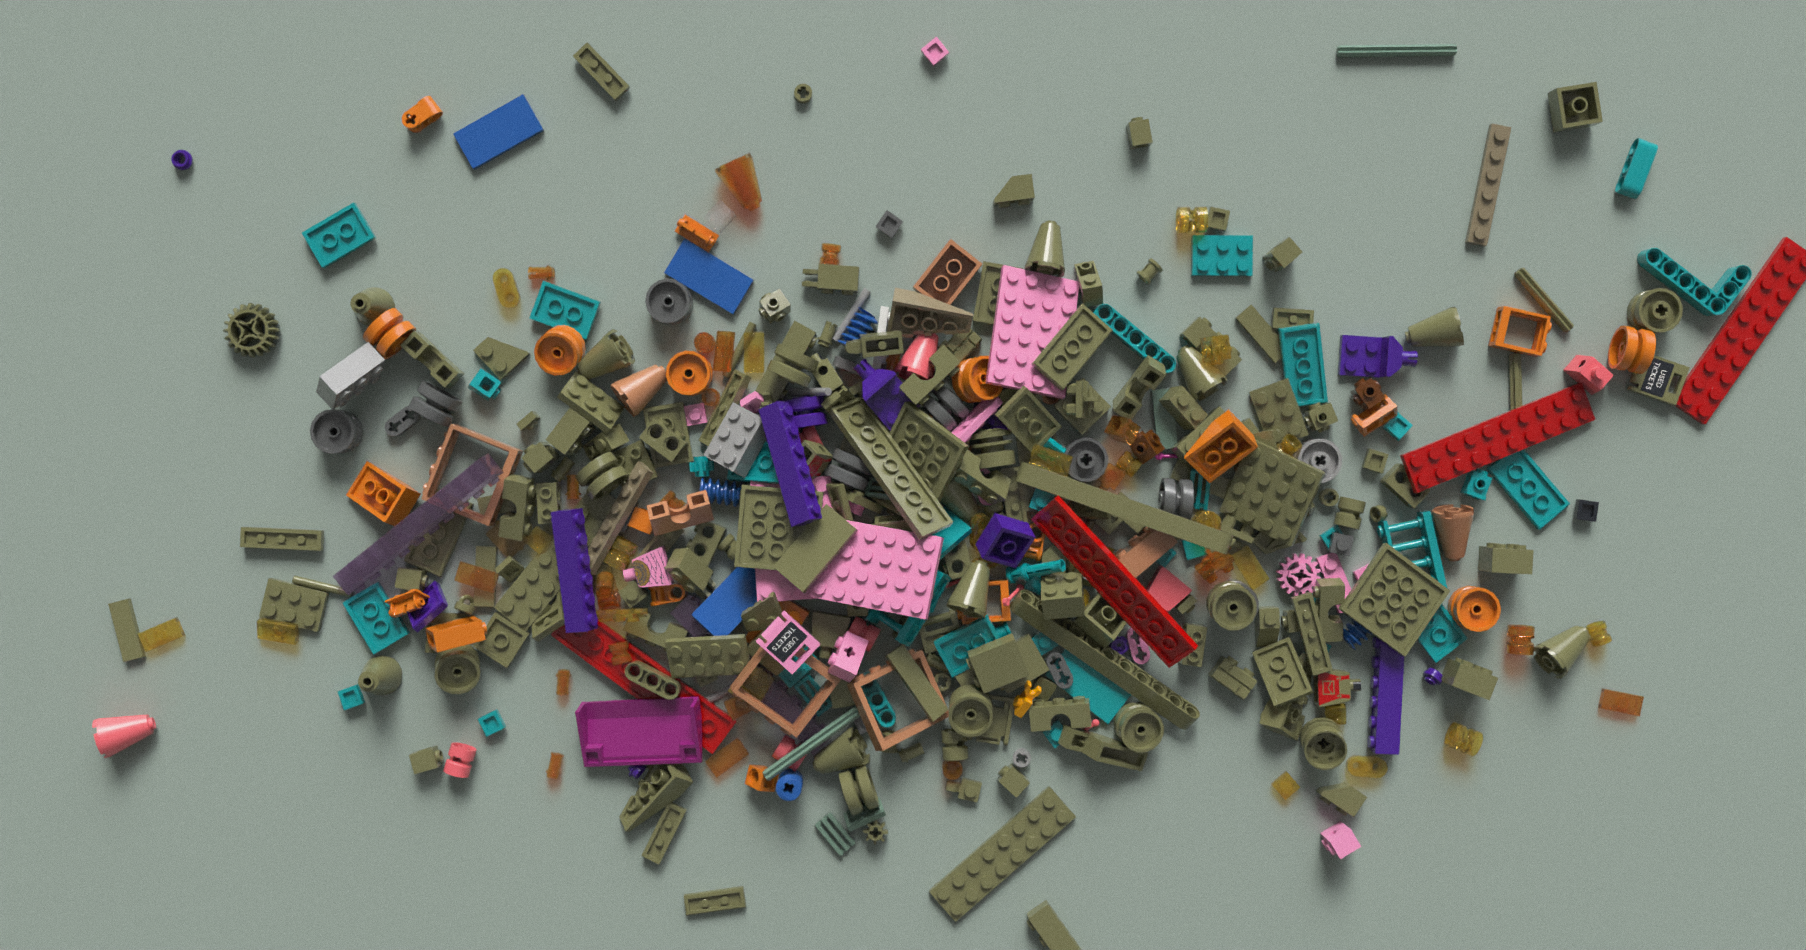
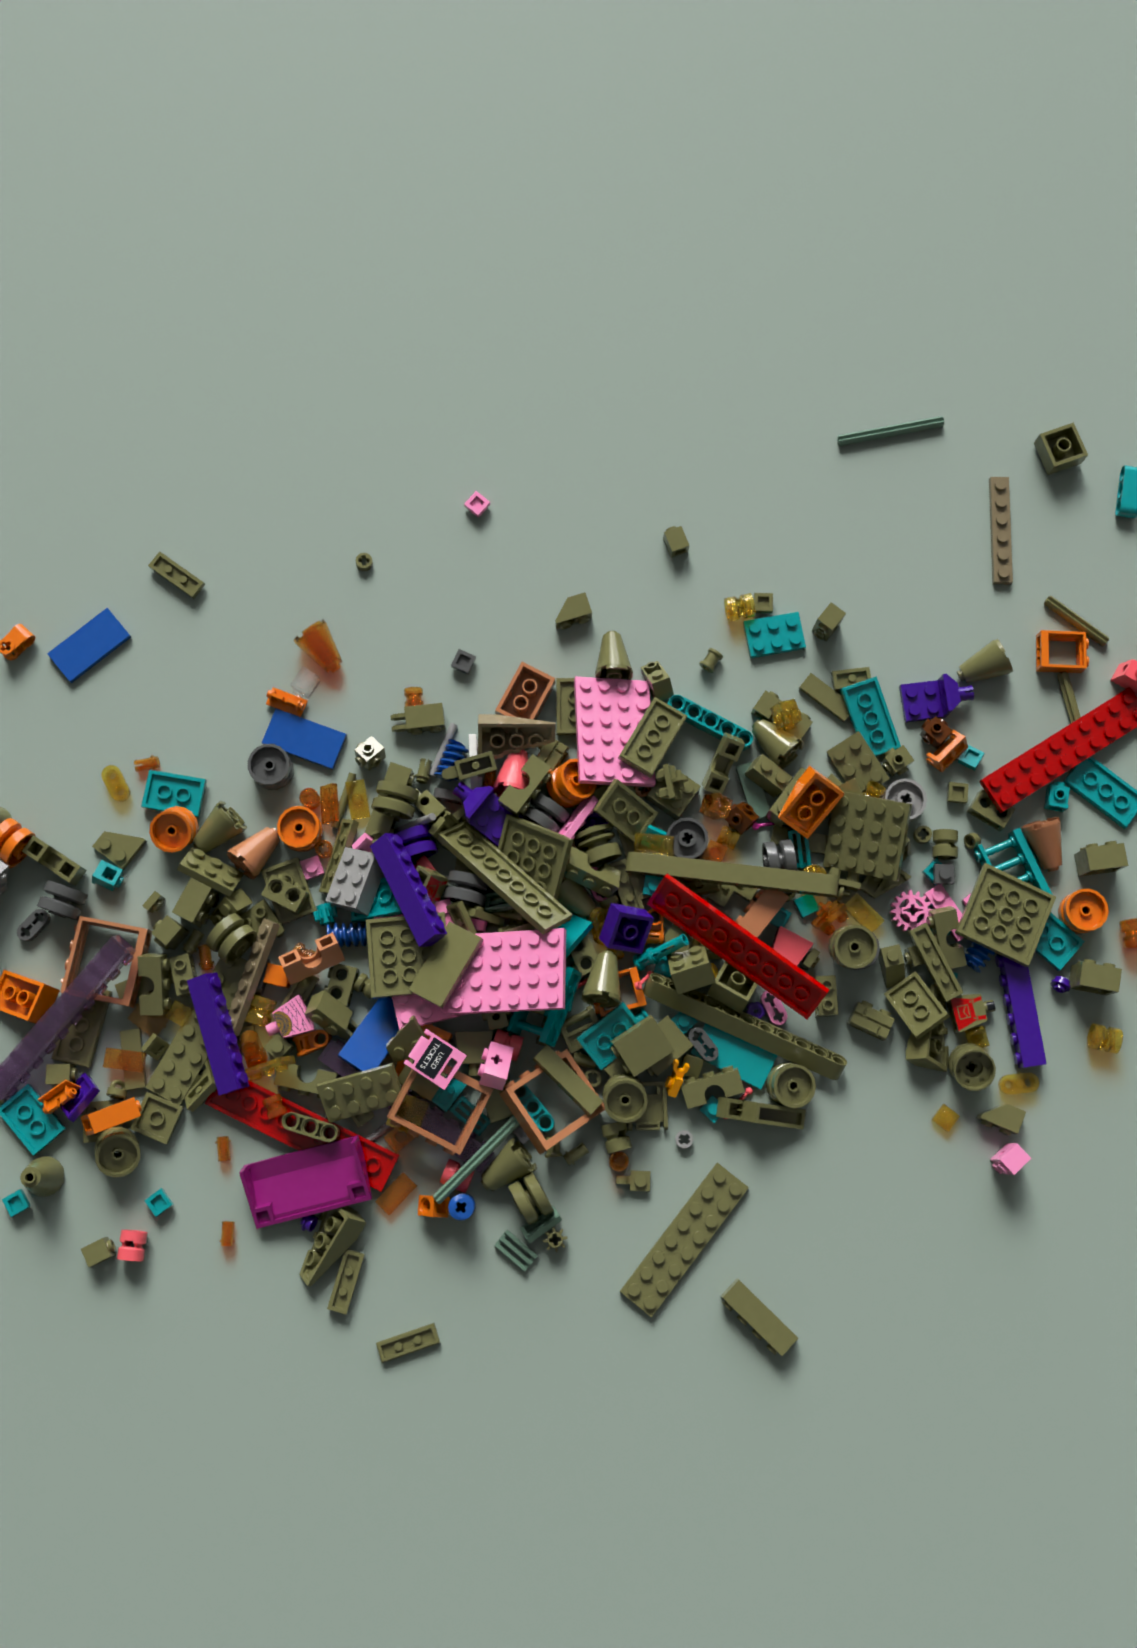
camera: 15 degrees left, 10 degrees down
(1013, 780) = (679, 1161): olive brick -> none

